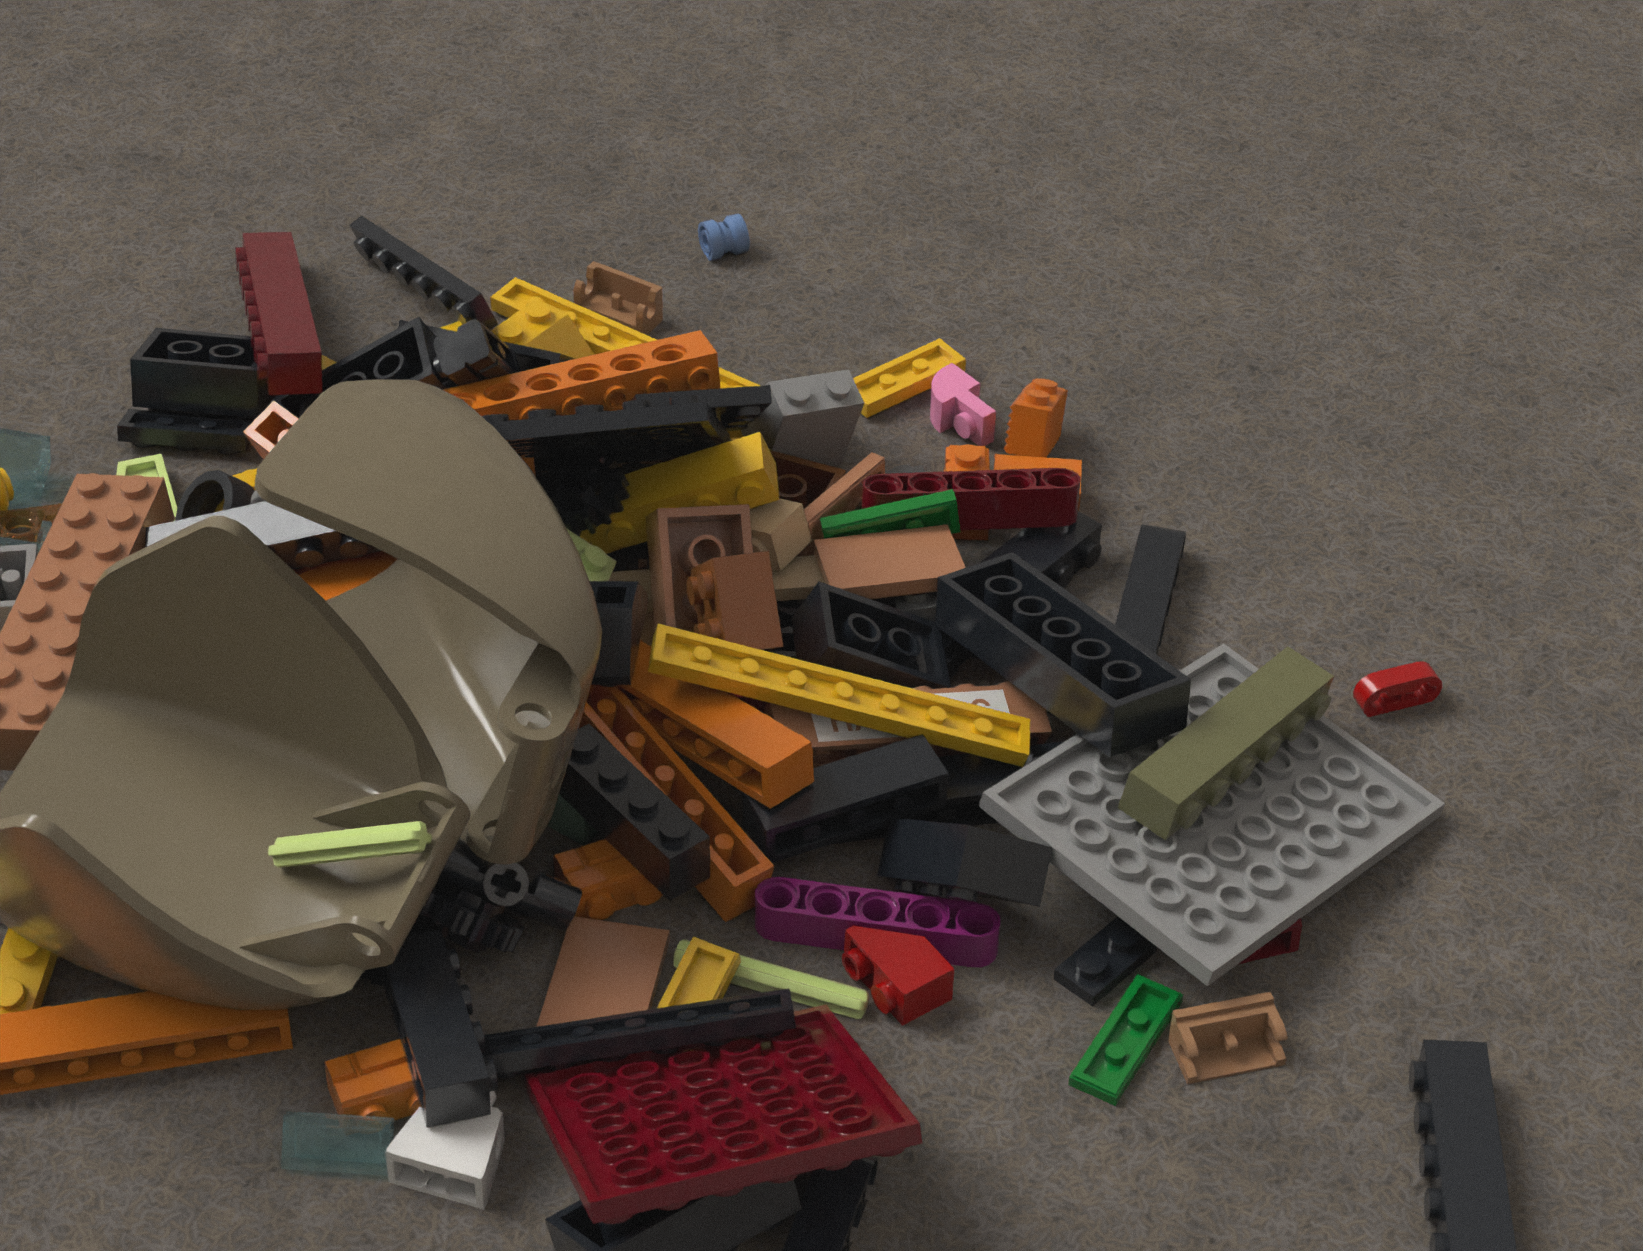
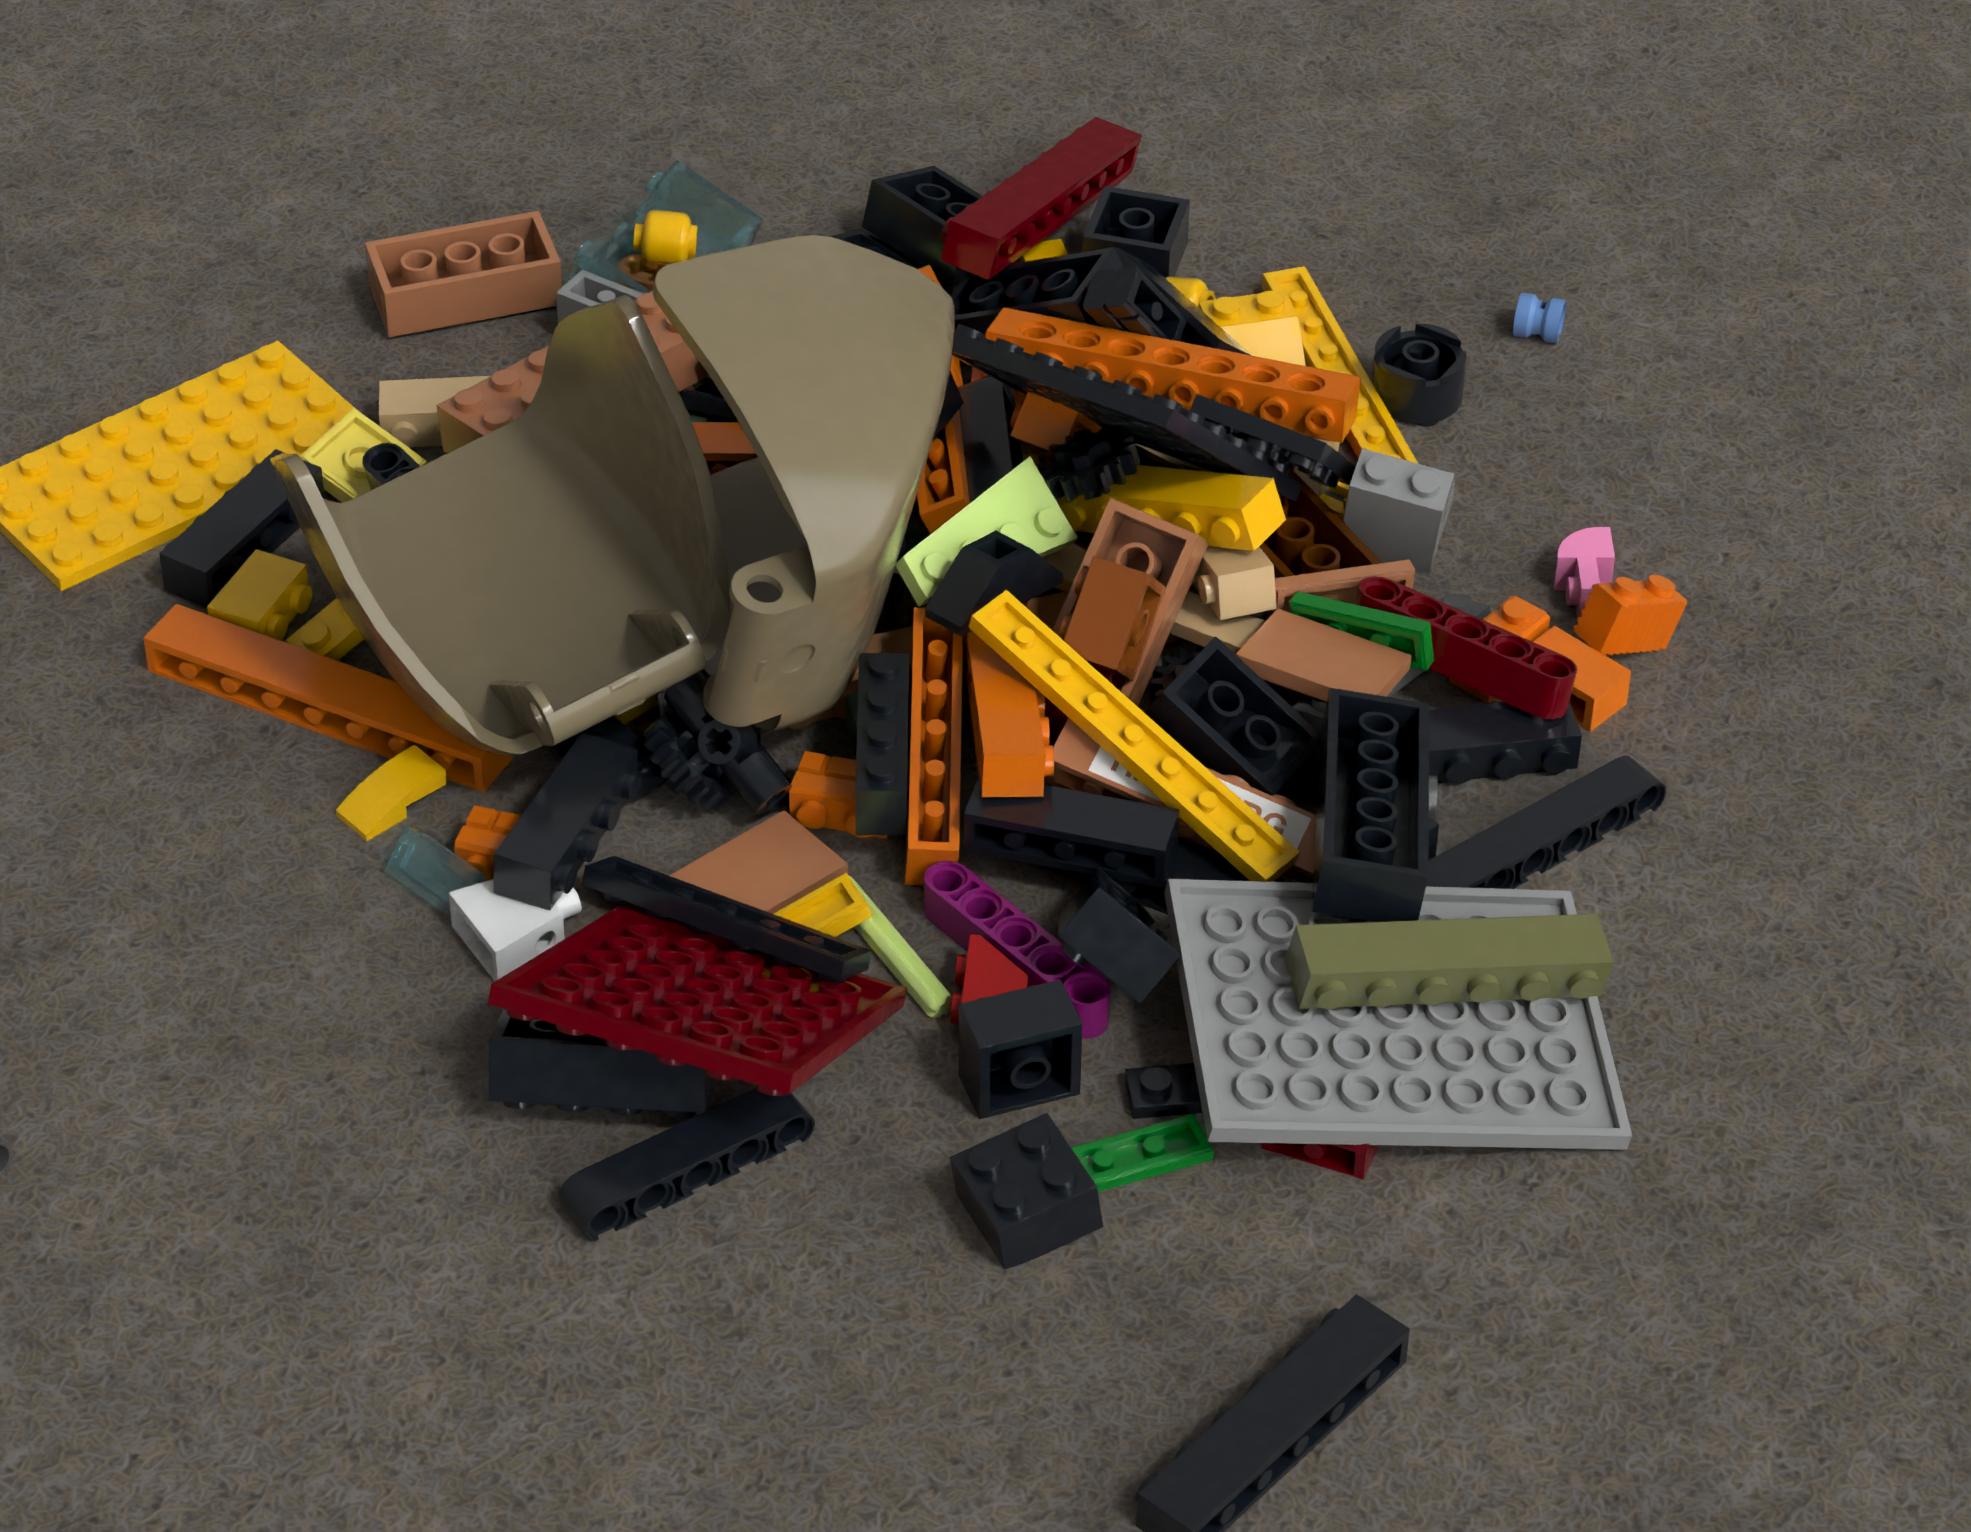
camera: 40 degrees right, 0 degrees up
(220, 1095) = (385, 793): none -> yellow slope
(350, 844) = (606, 638): yellowish green axle -> none
(364, 306) = (1141, 225): none -> black brick
(422, 273) = (1208, 225): black plate -> none
(620, 297) = (1368, 321): medium nougat hinge -> none
(692, 304) = (1419, 373): none -> black brick
(904, 376) = (1554, 520): yellow plate -> none
(983, 999) = (1020, 1049): none -> black brick
(1104, 1112) = (1026, 1191): none -> black brick
(1227, 1037) = (1206, 1202): medium nougat hinge -> none
(1397, 688) = (1710, 1021): red beam -> none

